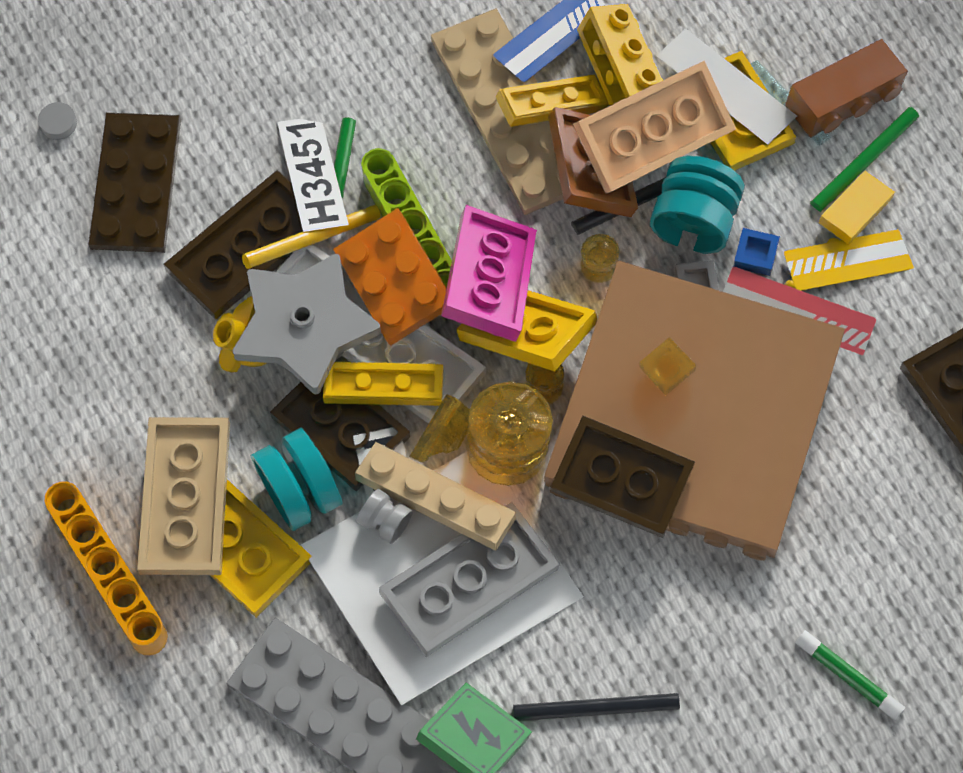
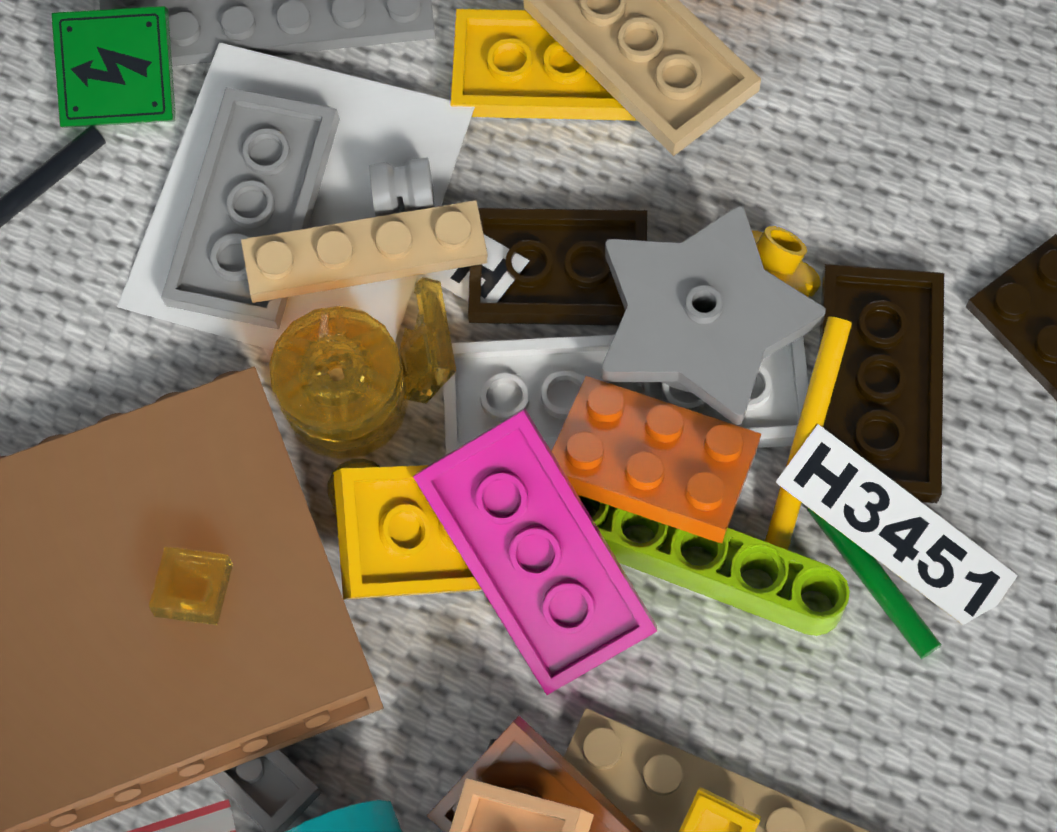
camera: 140 degrees right, 0 degrees up
(302, 476) = (535, 142): teal wheel -> none
(384, 384) = (542, 334): yellow tile -> none
(601, 250) = (420, 703): clear yellow wheel -> none
(622, 476) = (147, 419): dark brown plate -> none

